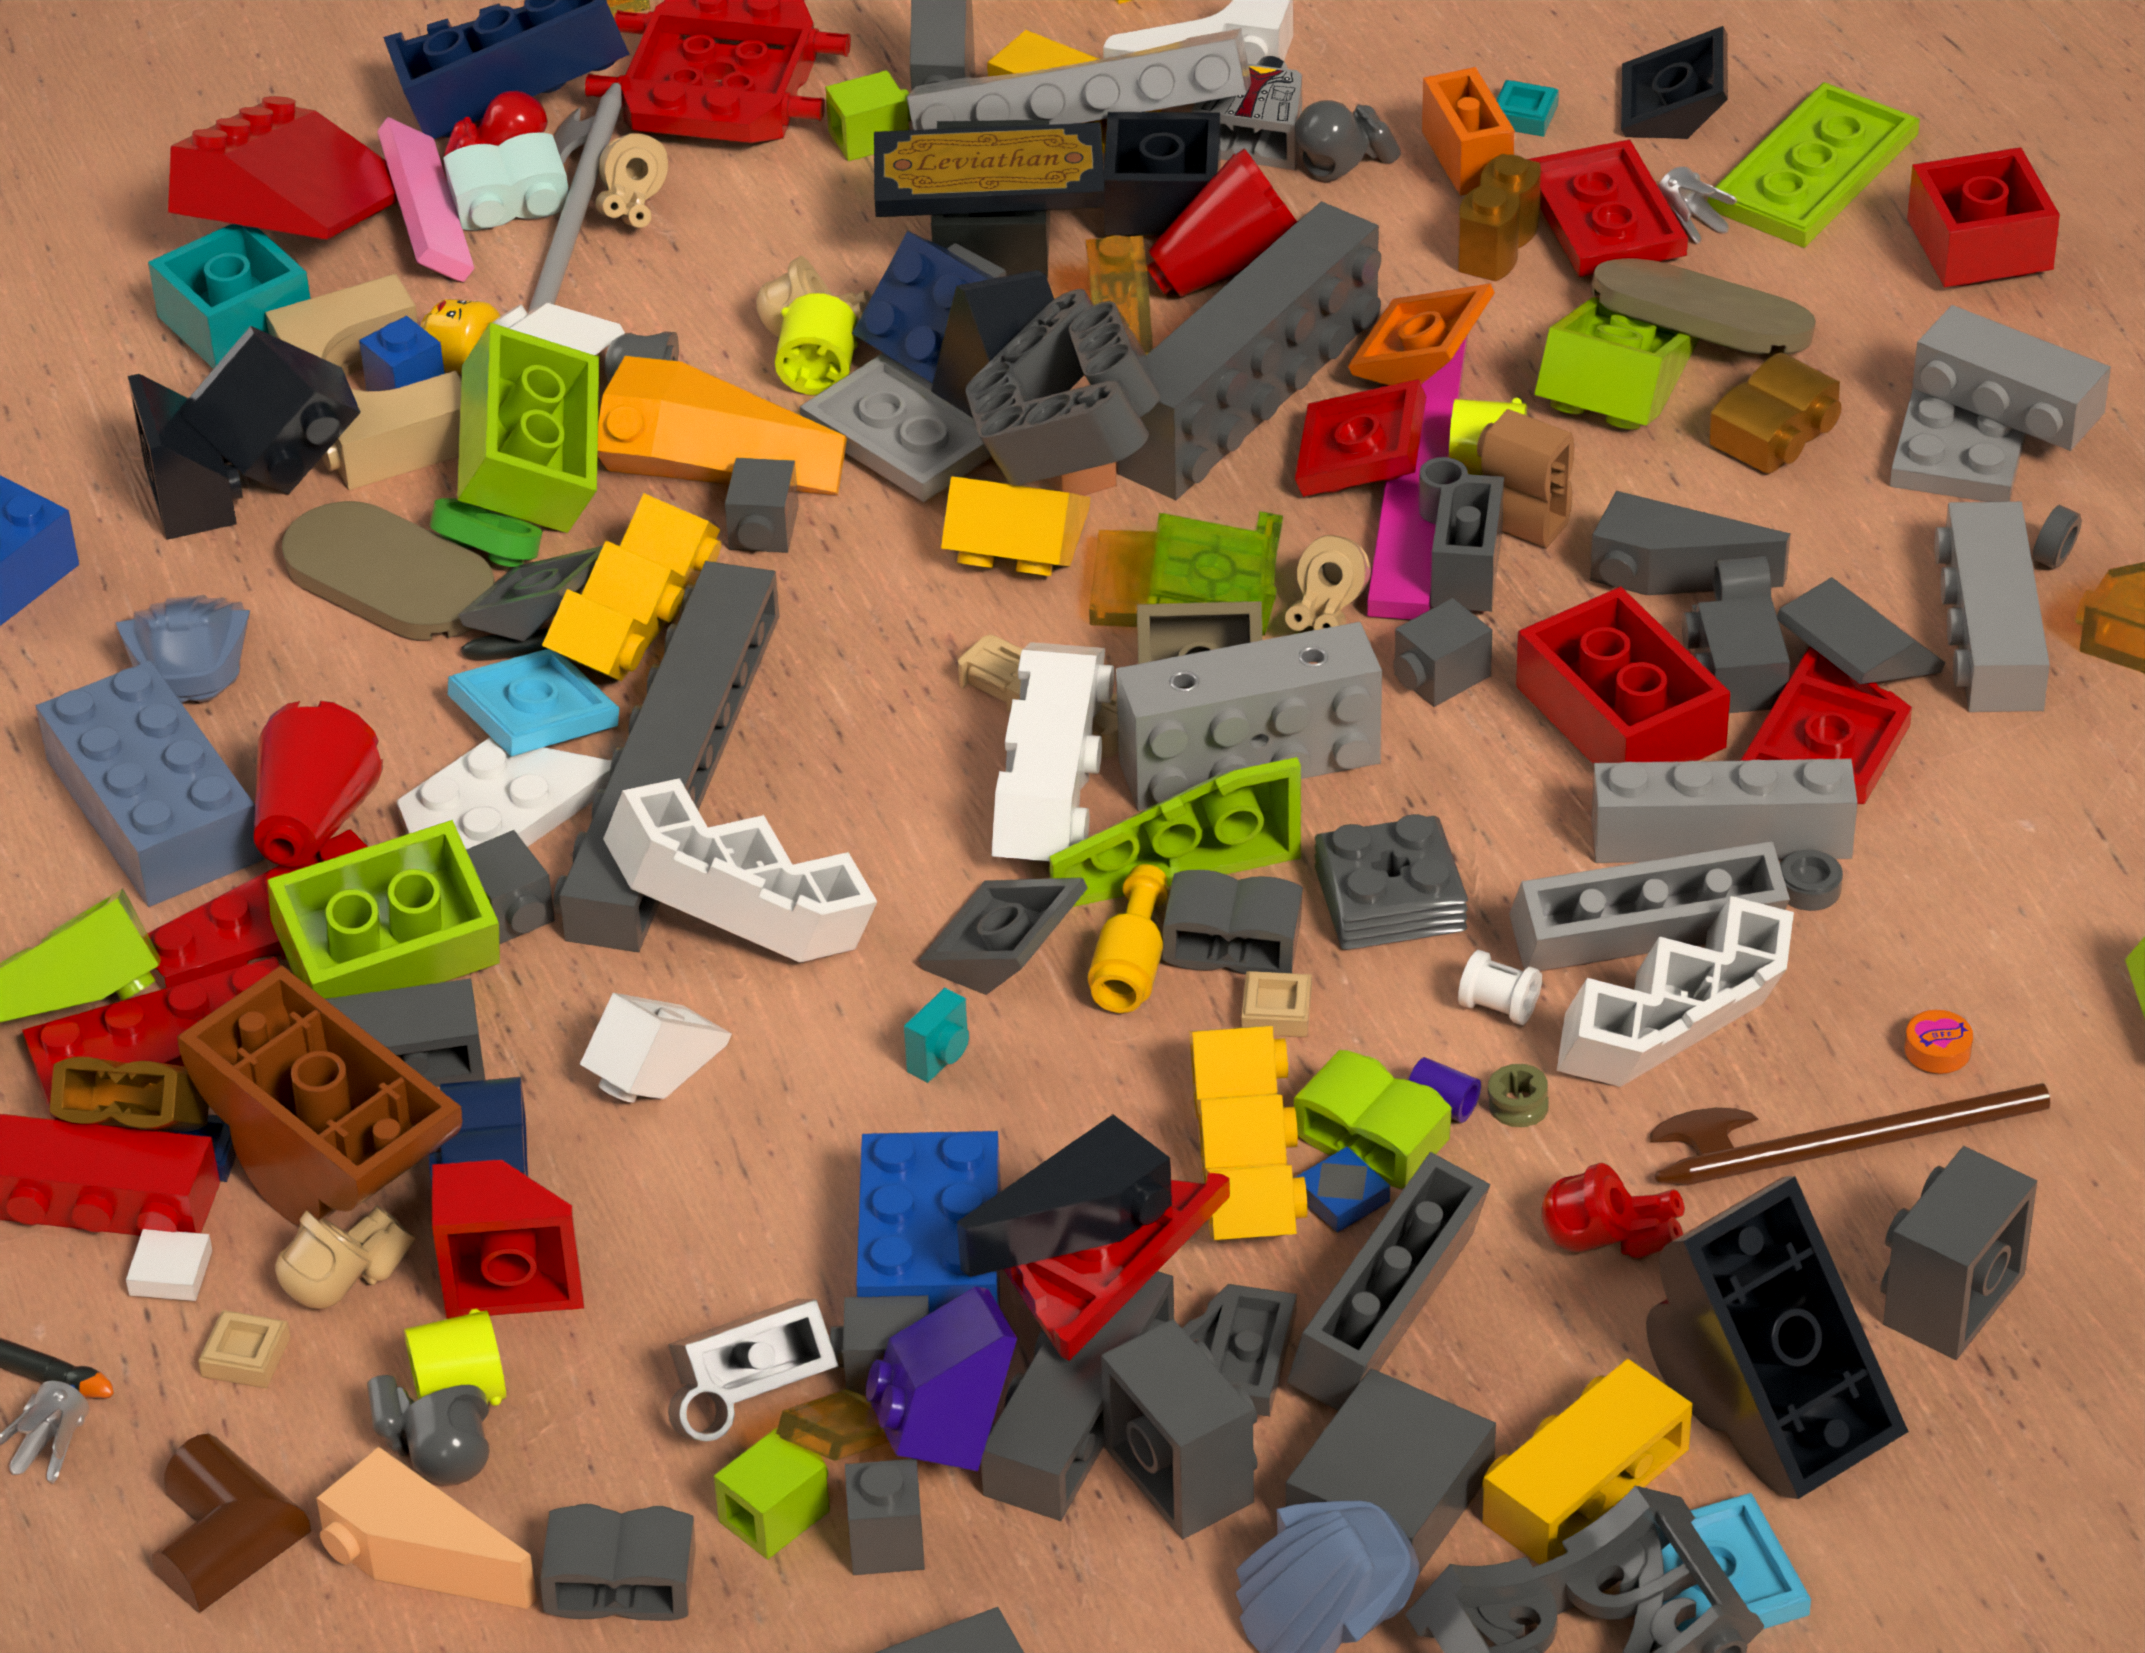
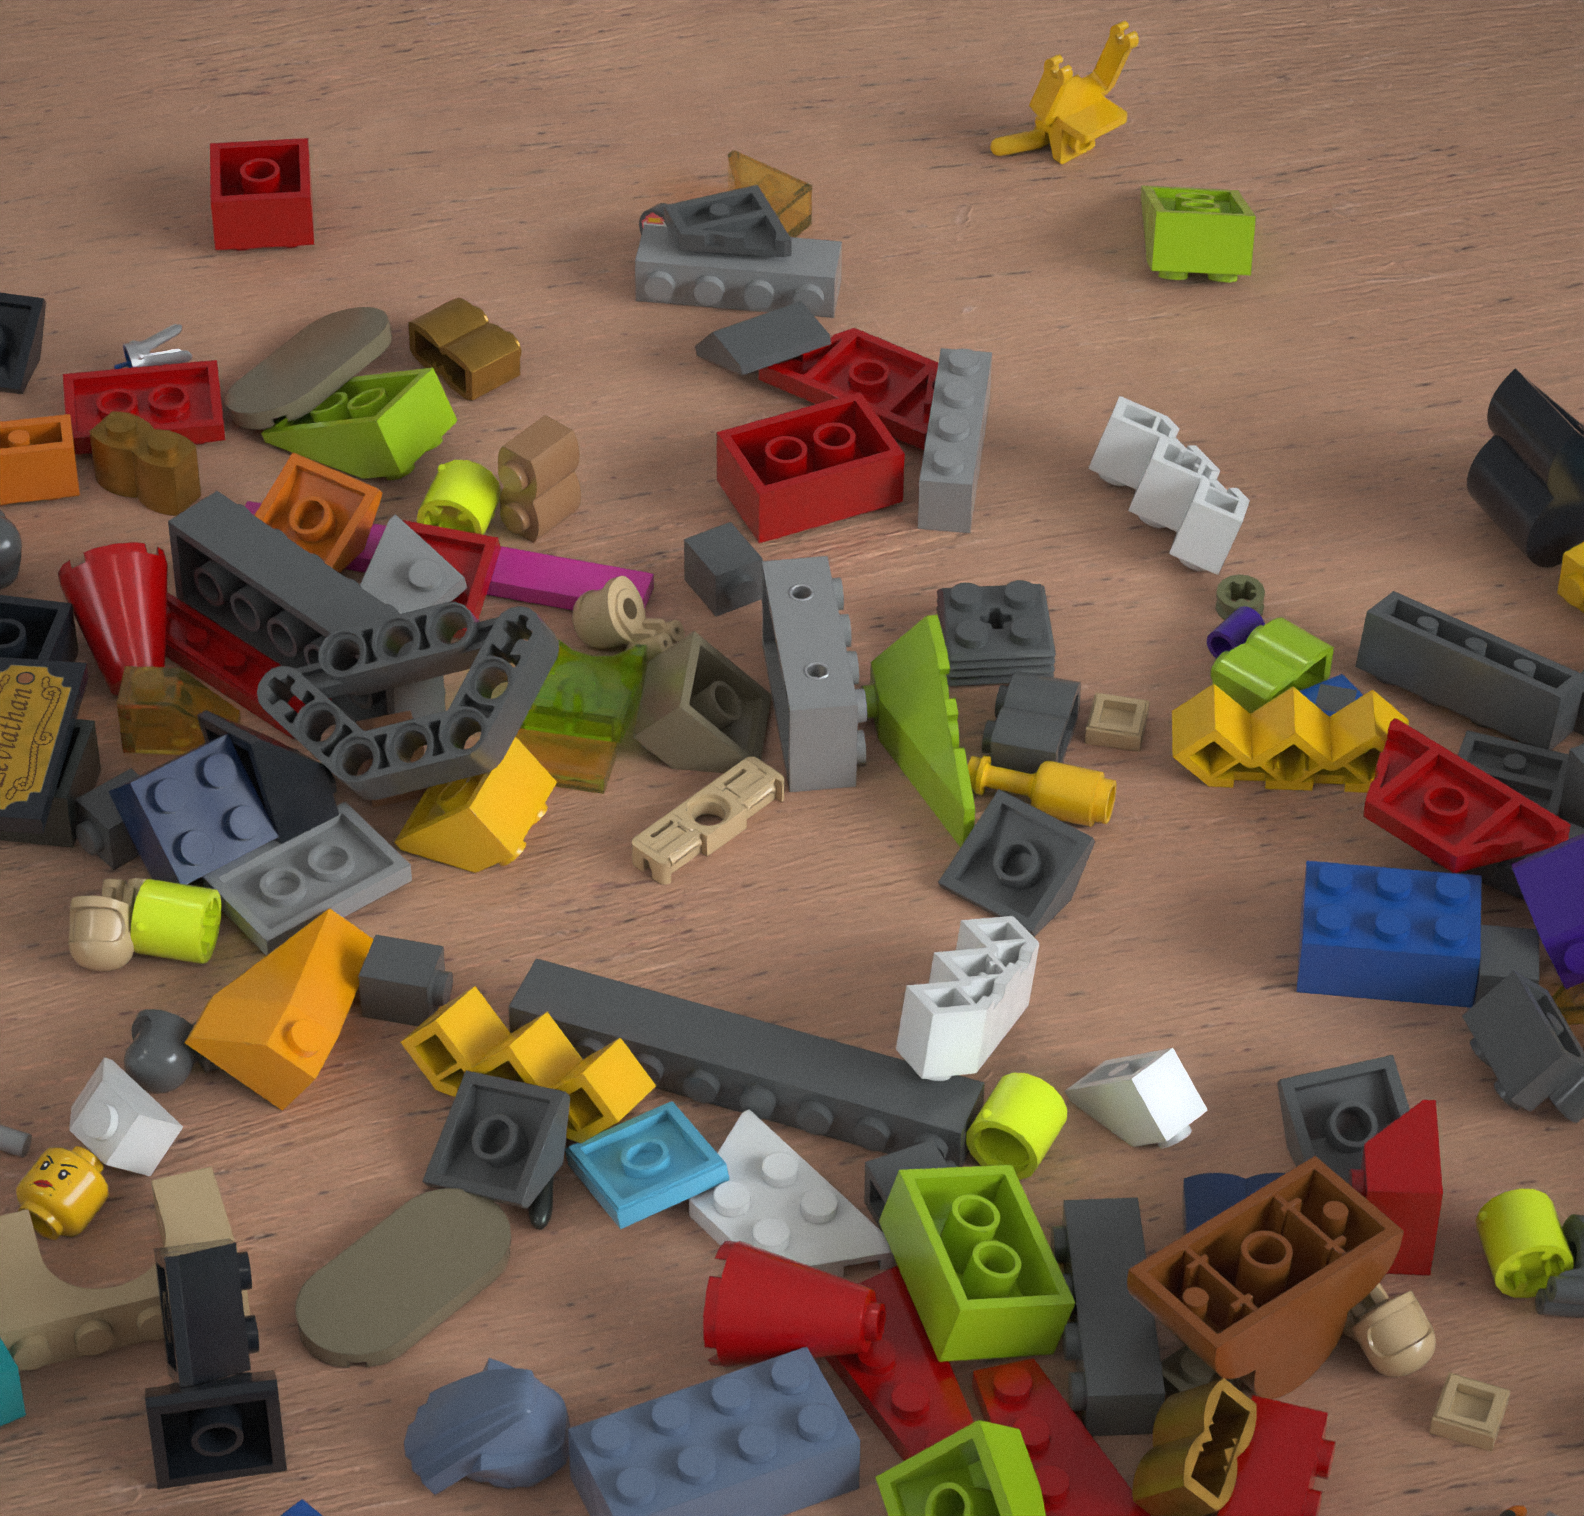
camera: 85 degrees left, 0 degrees up
(169, 1265) = (1364, 1464): white tile -> none
(400, 356) = (104, 1238): blue brick -> none
(503, 536) = (379, 1188): bright green plate -> none
(528, 428) = (278, 1118): lime brick -> none
(595, 950) = (1017, 1124): none -> neon yellow piece
(635, 1225) = (1340, 1110): none -> dark grey slope
(936, 1035) = (1146, 915): teal plate -> none
(1050, 750) = (826, 795): white brick -> none
(1070, 1203) = (1437, 782): black slope -> none
(1330, 410) = (410, 571): none -> light grey wing
(1466, 531) = (592, 525): dark grey hinge -> none
(1499, 987) = (1124, 593): white bush -> none
(1598, 1211) = (1391, 558): red piece -> none
(1632, 905) = (1071, 487): light grey brick -> none
(1673, 548) = (621, 427): dark grey slope -> none
(1717, 1158) = (1272, 510): reddish brown piece -> none
(1740, 634) = (740, 394): dark grey hinge -> none
(1812, 879) = (1019, 419): dark grey tile -> none
(1814, 164) = (115, 286): lime tile -> none
(1938, 1041) = (1208, 381): orange tile -> none
(1955, 452) = (503, 262): light grey plate -> none
(1958, 1251) = (1455, 372): dark grey brick -> none
(2011, 377) = (493, 203): light grey brick -> none
(2021, 554) = (729, 223): none -> dark grey wing

